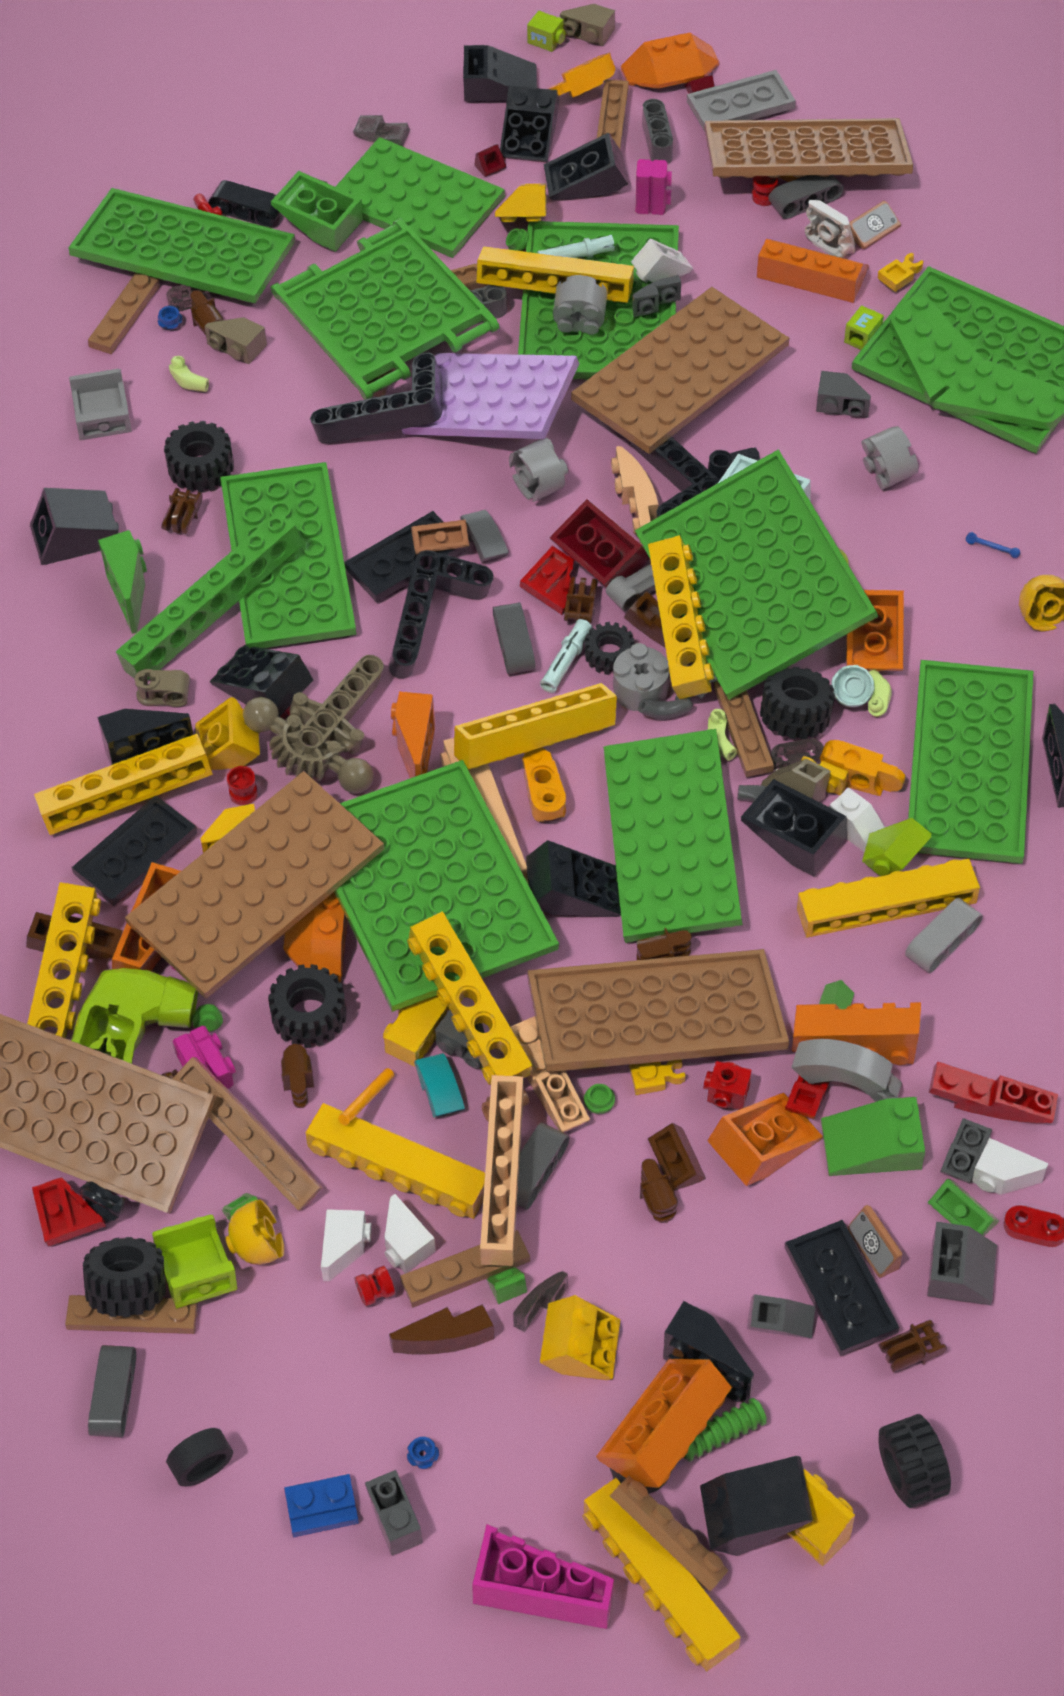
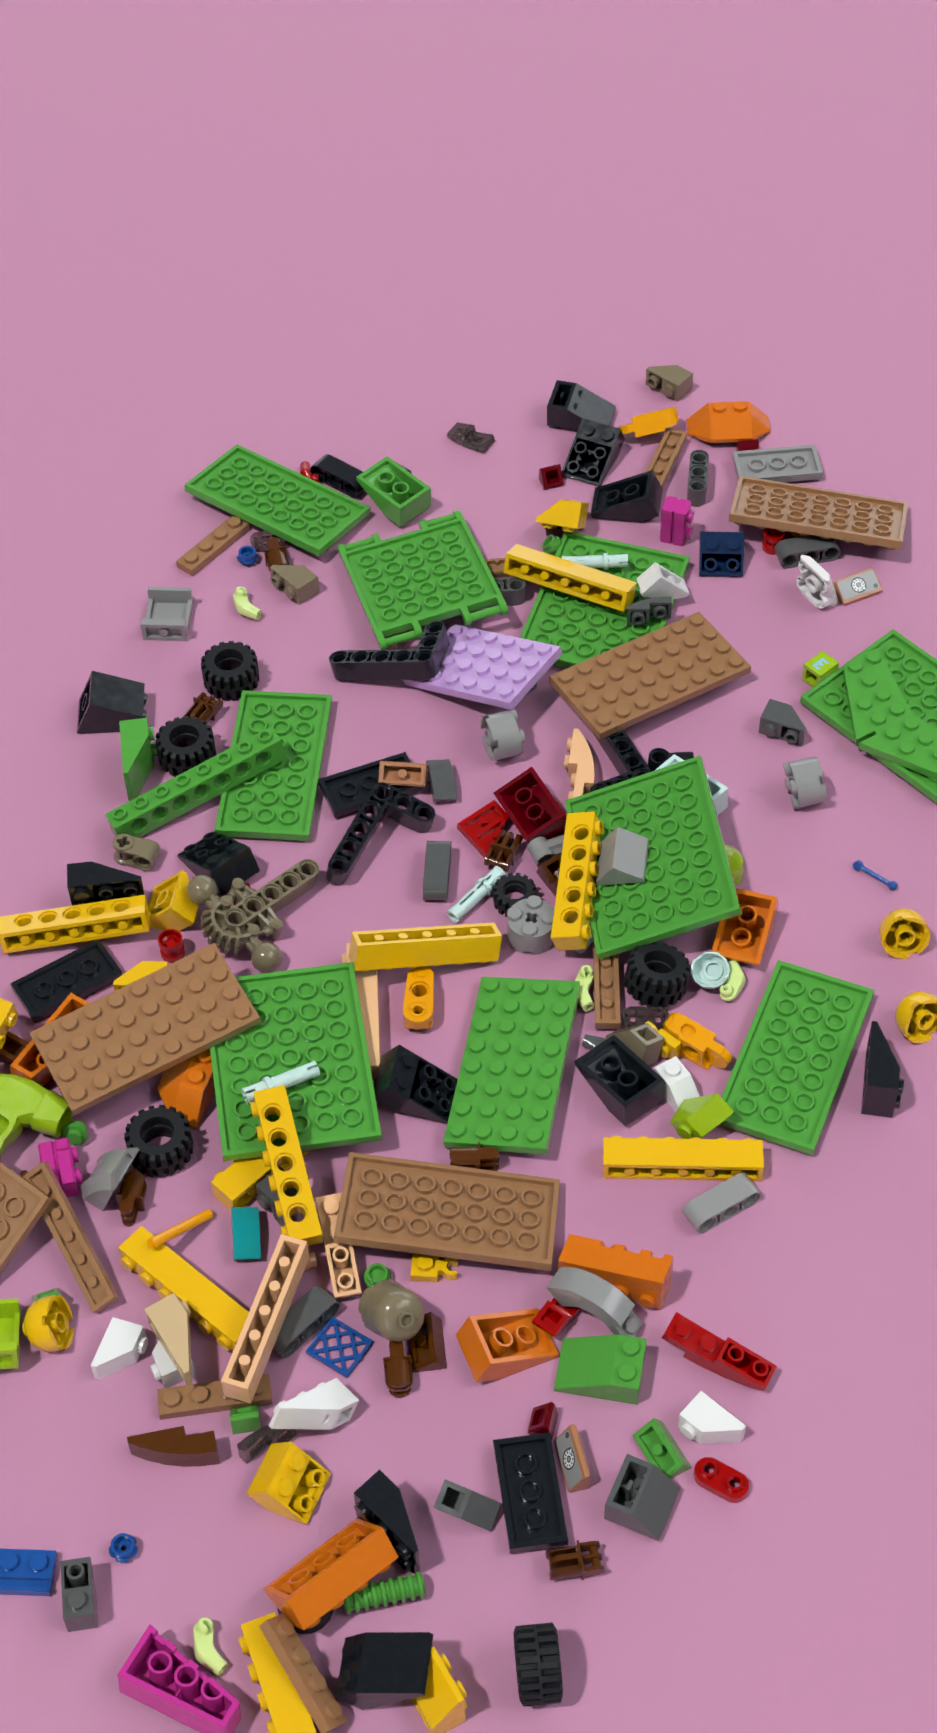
camera: 15 degrees right, 5 degrees down
(173, 539) = (174, 738): none -> black tyre
(265, 1057) = (107, 1176): none -> light grey slope
(367, 1288) = (126, 1395): red wheel -> none
(399, 1204) = (172, 1328): none -> tan slope
(414, 729) = (326, 929): orange slope -> none
(428, 195) = (486, 493): bright green plate -> none
(437, 904) = (287, 1078): none -> light aqua pin
(545, 31) = (631, 380): lime brick -> none
(548, 1534) = (204, 1647): none -> yellowish green arm
(577, 1203) = (329, 1362): none -> blue window
(580, 305) = (580, 606): light grey brick -> none
(588, 1254) = (316, 1409): none -> white slope
(634, 1131) = (391, 1311): none -> dark tan cylinder
(665, 709) = (545, 957): dark grey arm -> none
(712, 215) = (721, 553): none -> dark blue slope
(724, 582) = (622, 858): none -> light grey slope
(728, 1085) = (489, 1290): red brick -> none
(810, 270) = (791, 614): orange slope -> none
(828, 1208) = (543, 1419): none -> dark red slope
(838, 994) = (611, 1234): bright green slope -> none
(899, 274) = (867, 631): yellow plate -> none
(966, 1150) = (679, 1396): dark grey slope -> none

